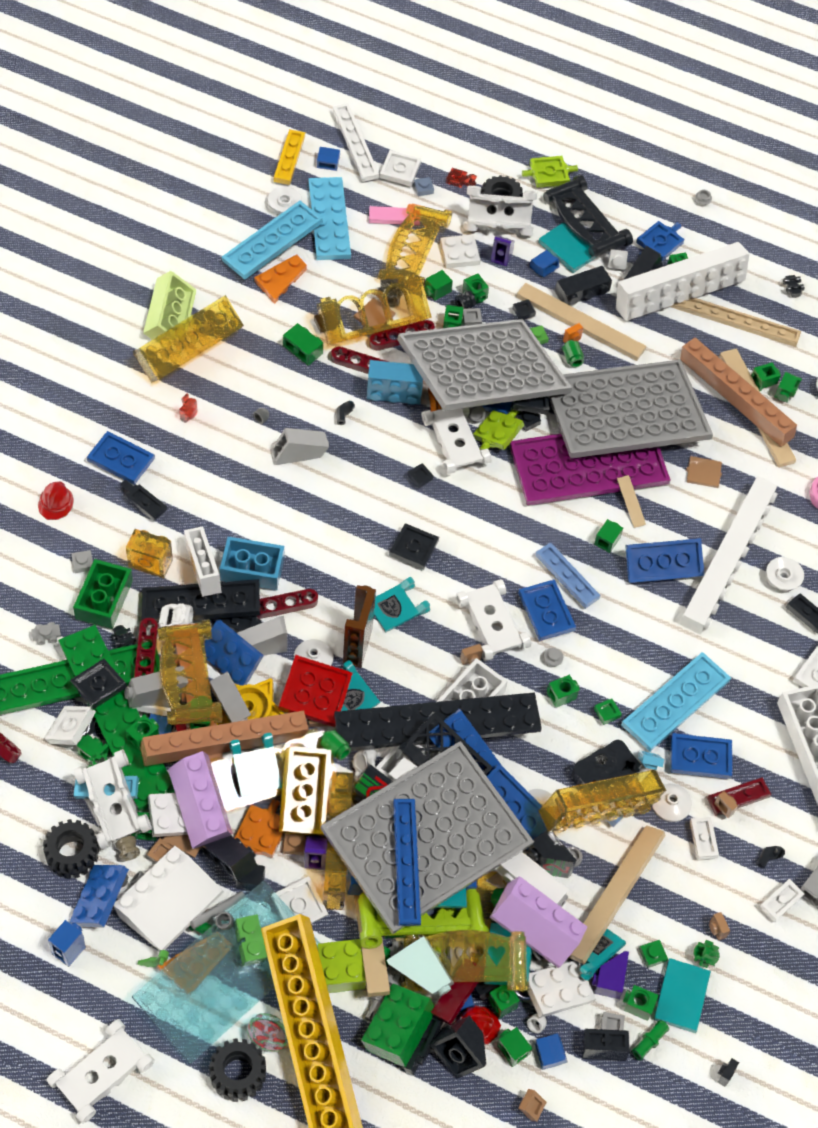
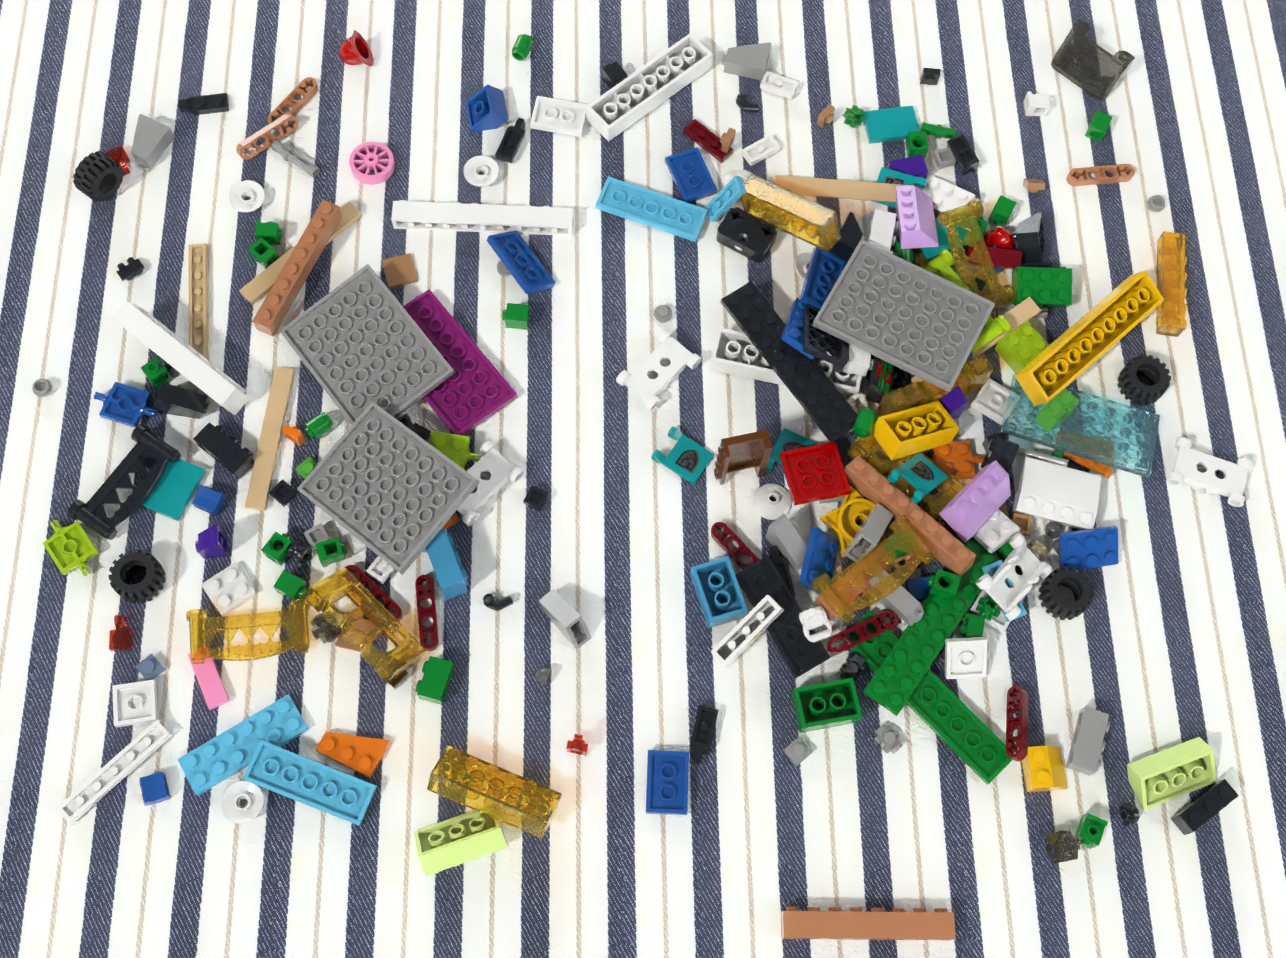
camera: 115 degrees left, 10 degrees up
(55, 501) = (748, 817): red piece -> none
(67, 942) = (1142, 548): blue brick -> none
(98, 683) = (923, 647): black tile -> none
(149, 553) = (763, 686): clear yellow brick -> none
(155, 961) = (1104, 474): bright green piece -> none
(224, 916) = (1056, 434): dark grey hinge -> none
(267, 1032) = (1104, 373): clear light blue tile -> none
(289, 157) = (171, 832): yellow plate -> none
(406, 862) = (938, 315): blue tile -> none
(414, 546) = (616, 468): black plate -> none
(422, 966) = (999, 282): light aqua slope -> none
(469, 654) = (700, 374): medium nougat plate -> none
(519, 219) = (164, 542): white piece -> none
(547, 610) = (620, 335): blue plate -> none
(550, 1051) = (988, 189): blue piece -> none
(559, 697) = (696, 298): green brick -> none
(567, 575) = (575, 334): medium blue plate -> none
(607, 711) = (691, 254): green plate -> none
(617, 259) = (172, 432): white plate -> none
(631, 501) = (468, 313): tan sticker -> none
(653, 953) = (871, 153): green plate -> none

